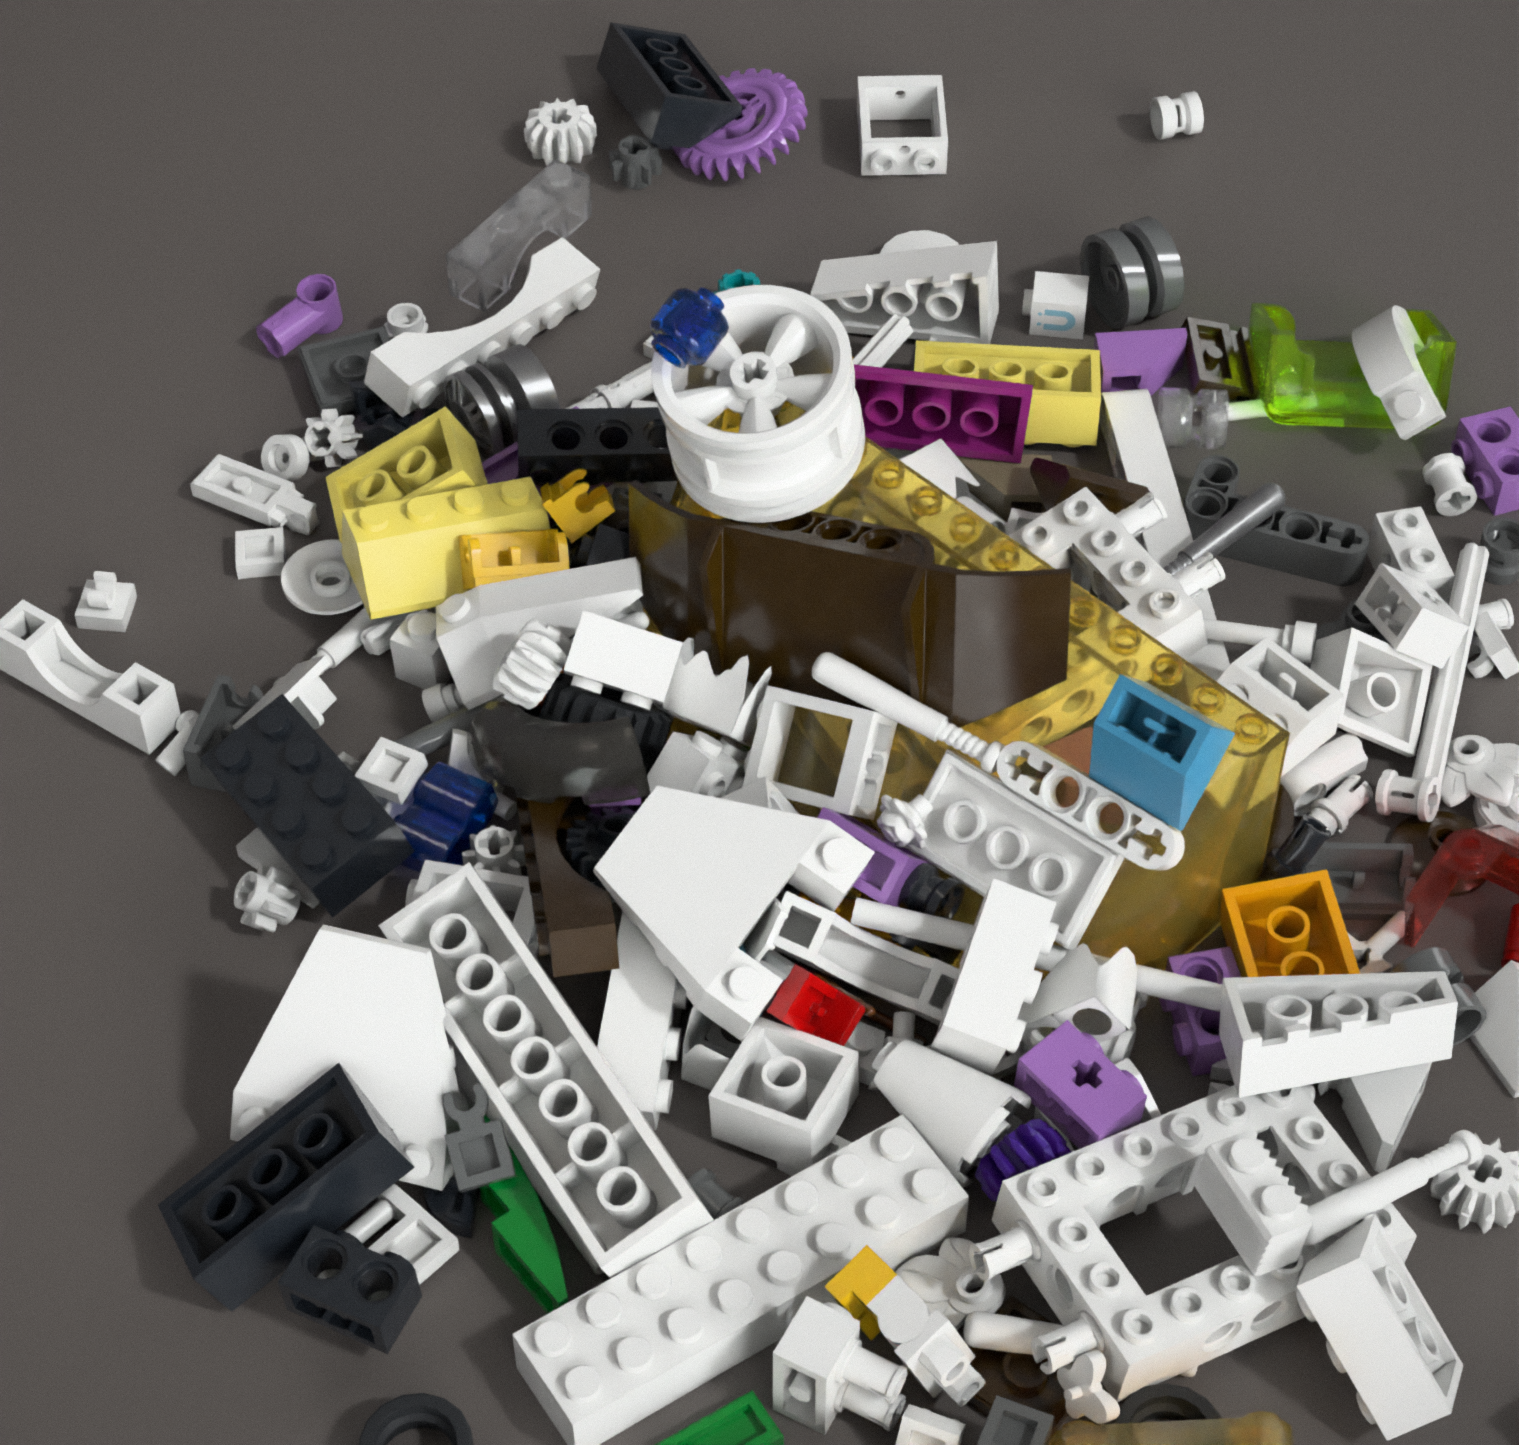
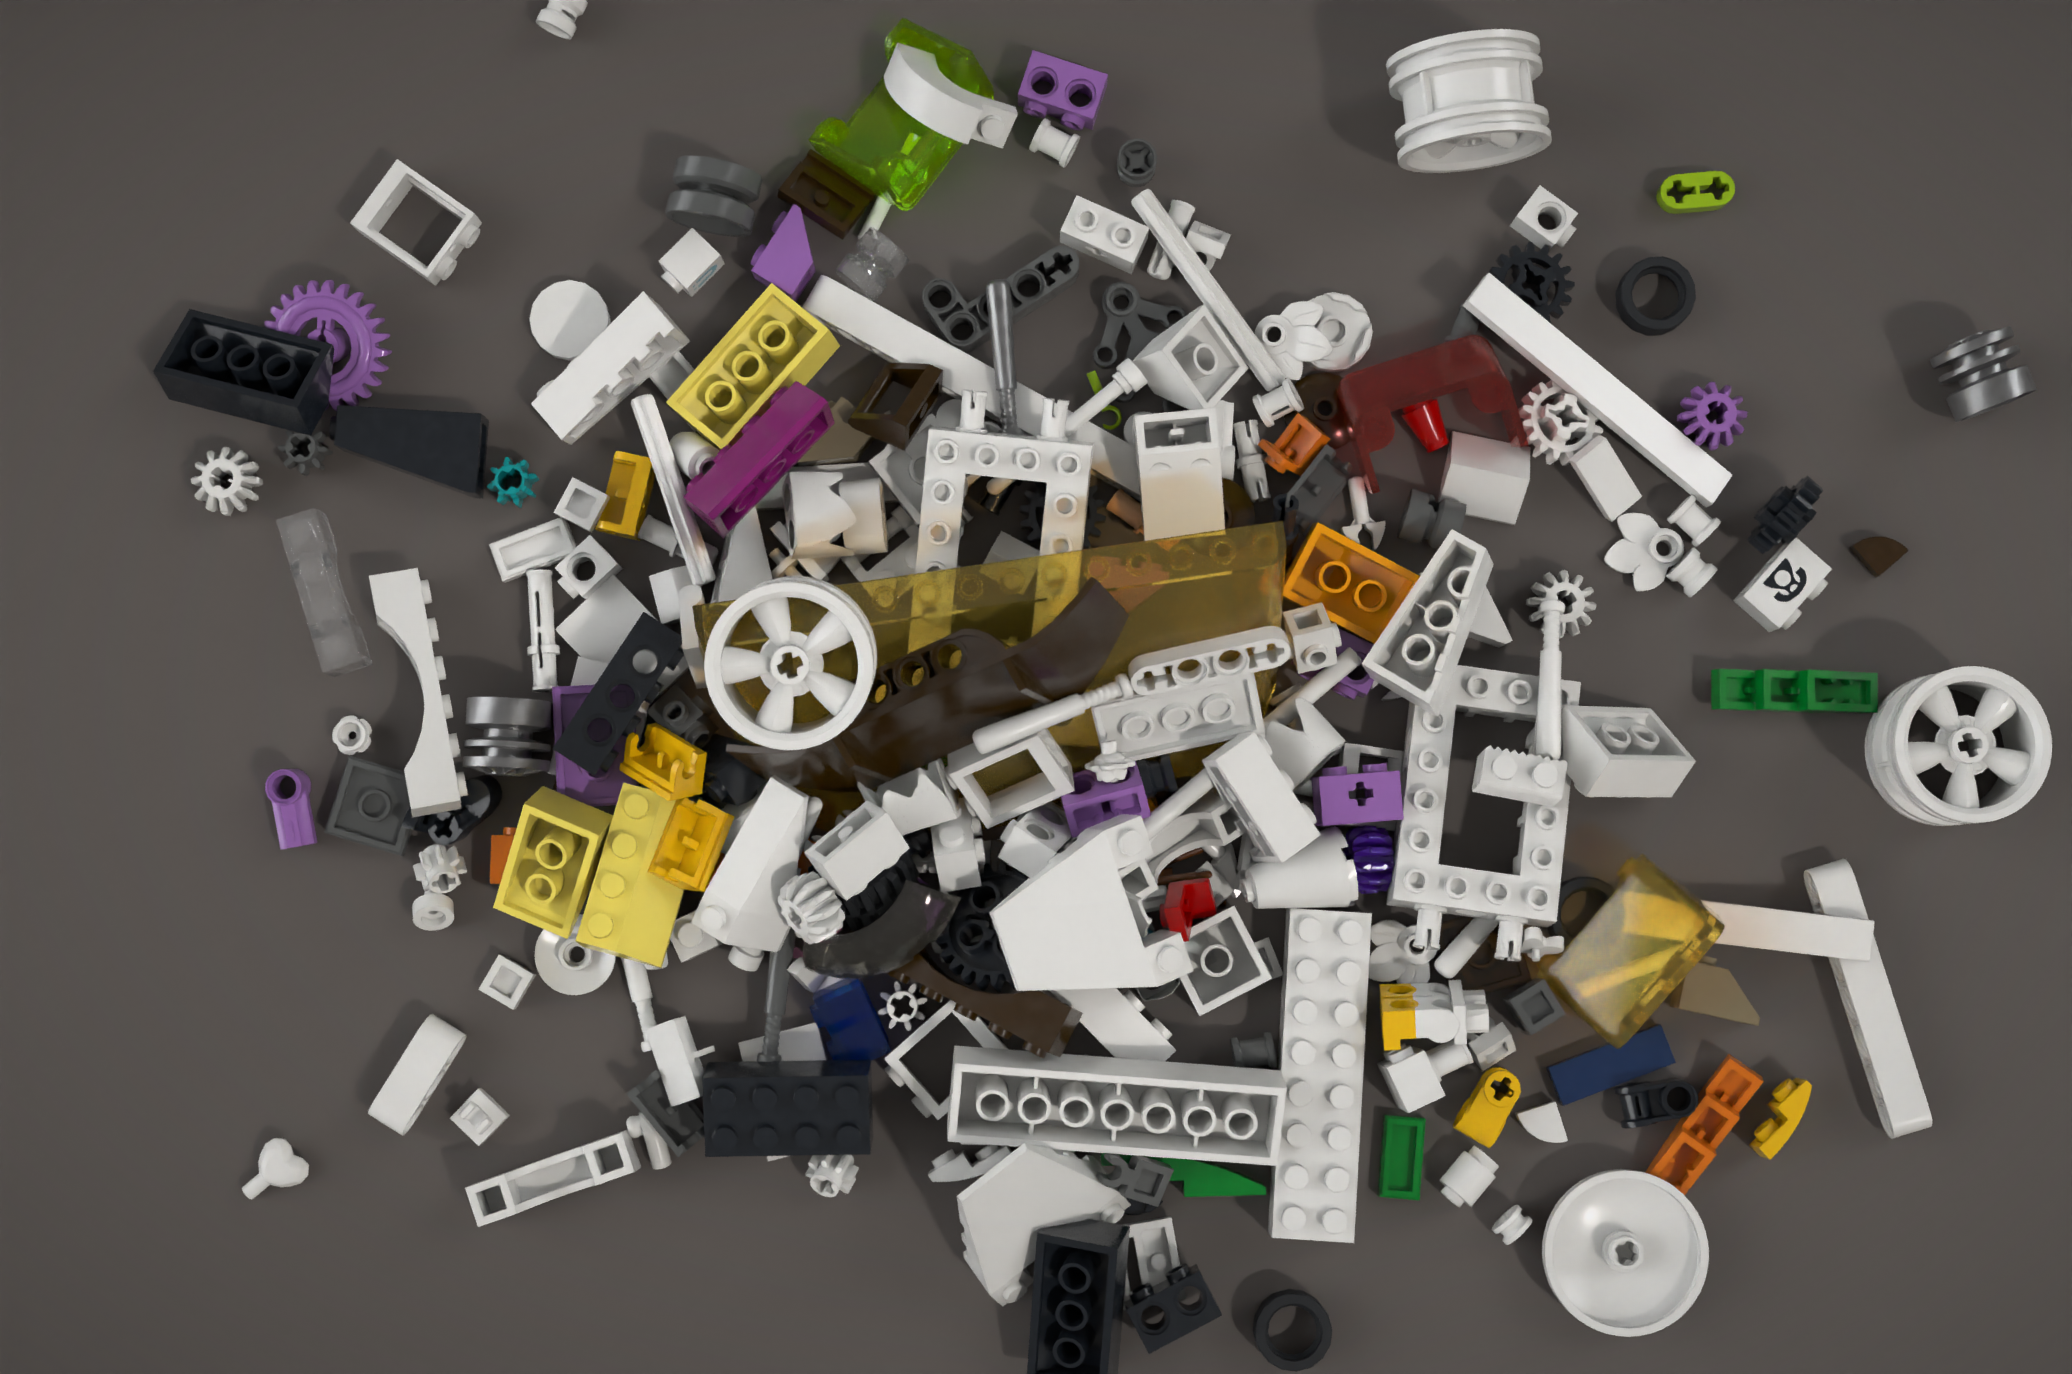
camera: 55 degrees left, 35 degrees up
(112, 532) = (417, 1074): none -> white beam
(255, 495) = (450, 954): white hinge -> none
(392, 770) = (797, 1034): white tile -> none
(689, 327) = (739, 694): clear blue head -> none
(714, 222) = (421, 443): none -> black slope
(1155, 750) = (1233, 606): dark azure slope -> none
(1202, 933) = (1311, 637): none -> white brick
(1389, 830) = (1295, 446): none -> orange bracket
(1411, 616) = (1165, 290): white brick -> none

